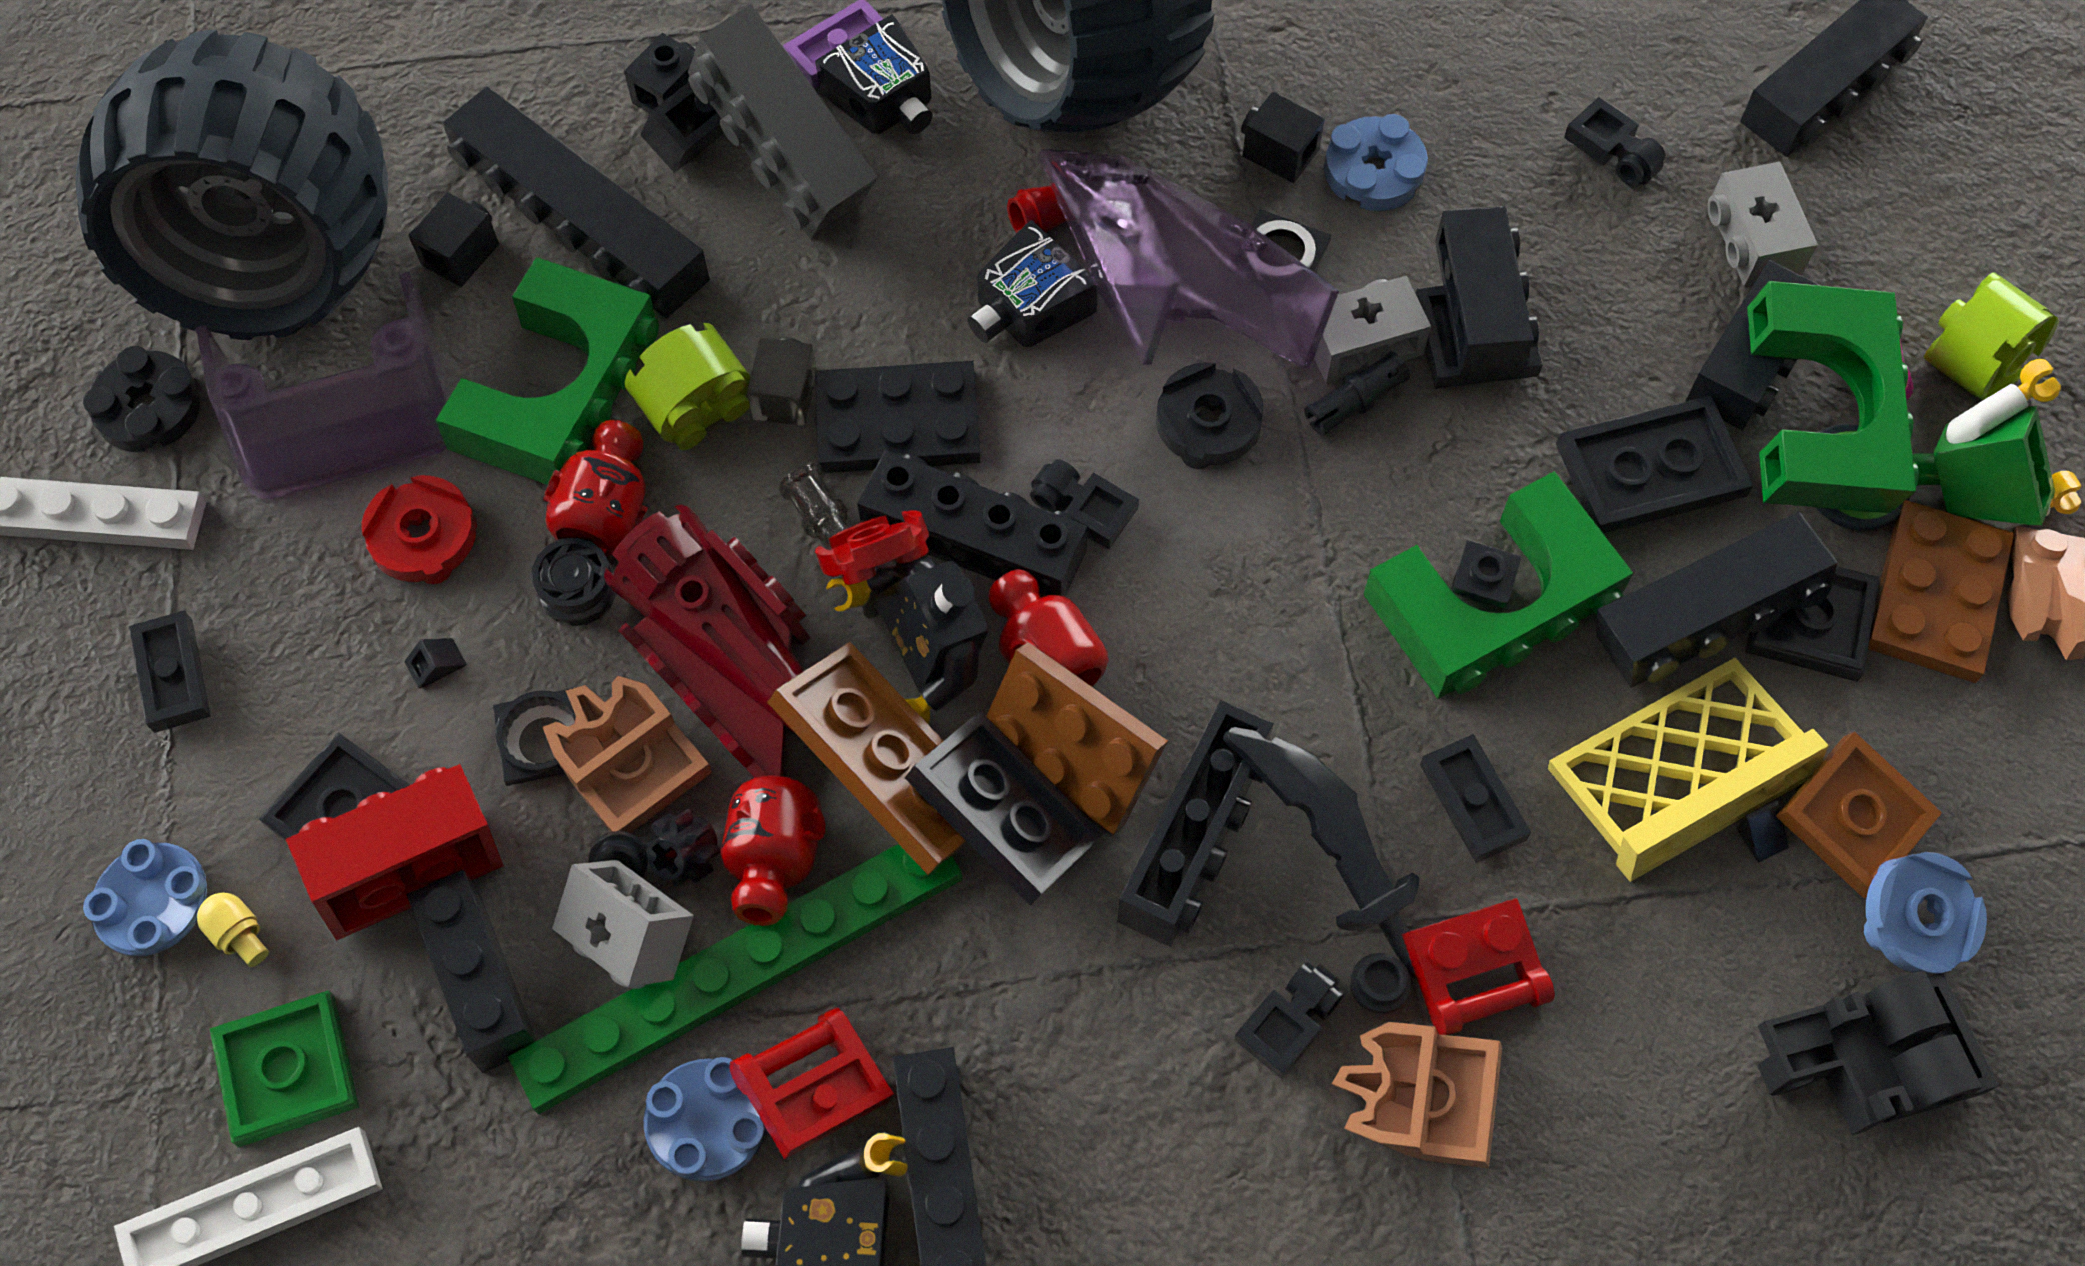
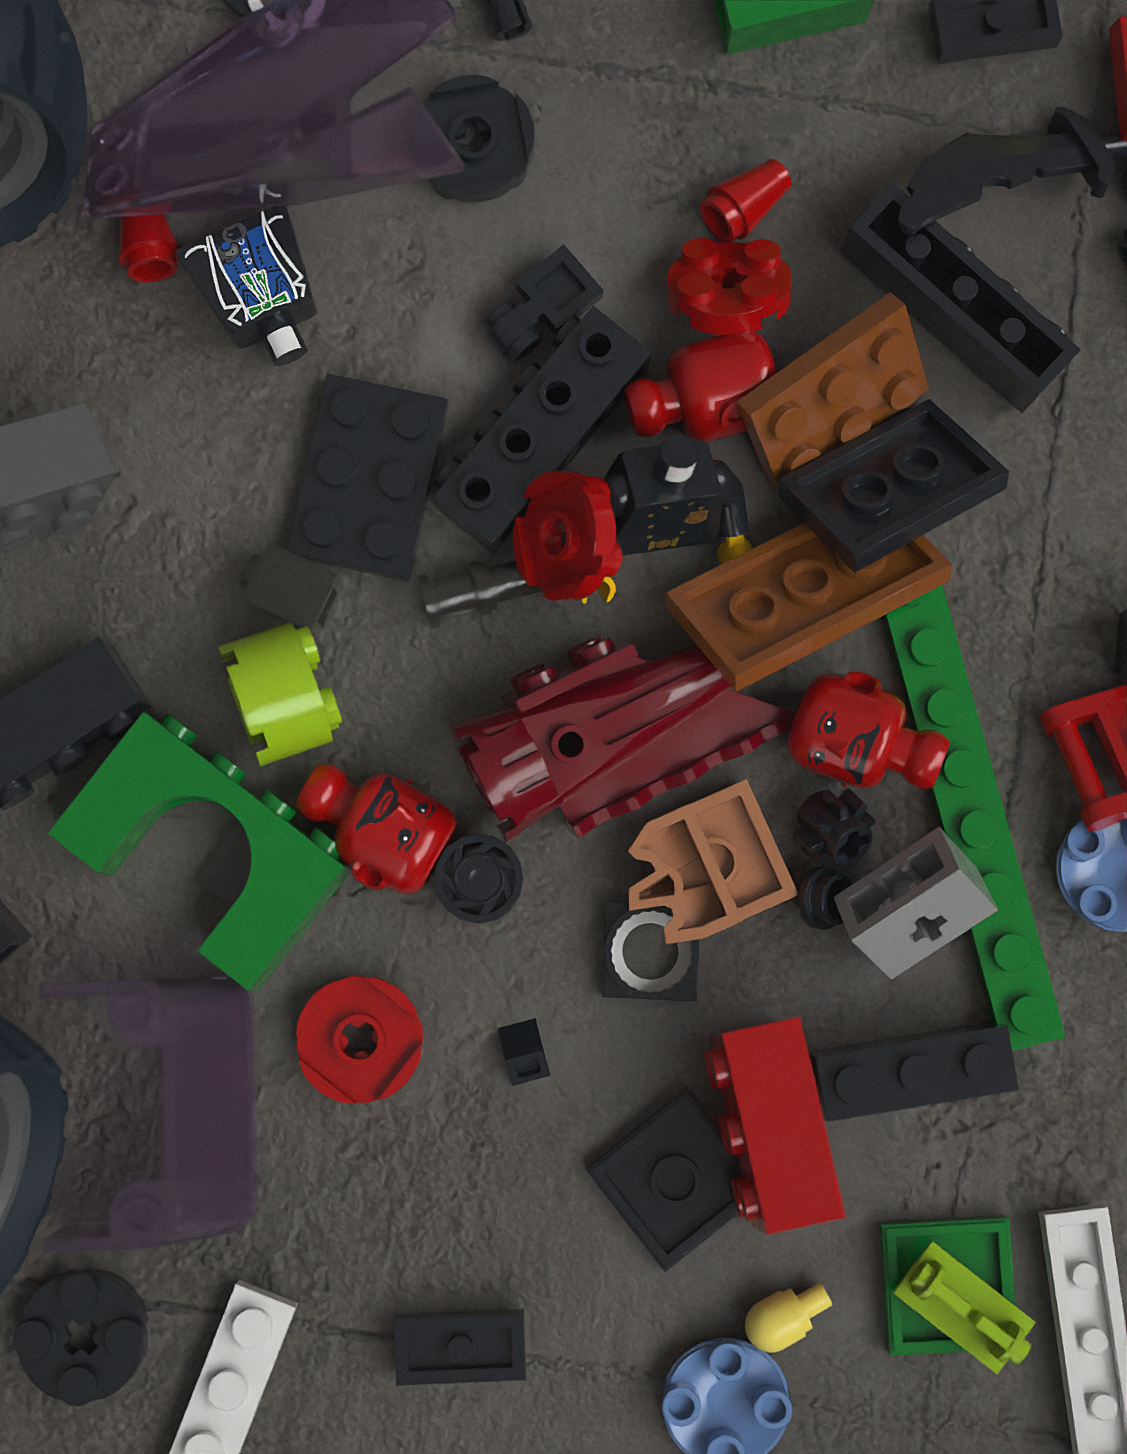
camera: 80 degrees left, 20 degrees up
(260, 1073) = (966, 1309): none -> lime hinge
(1144, 631) = (705, 271): none -> red plate
(1231, 633) = (744, 200): none -> red cone

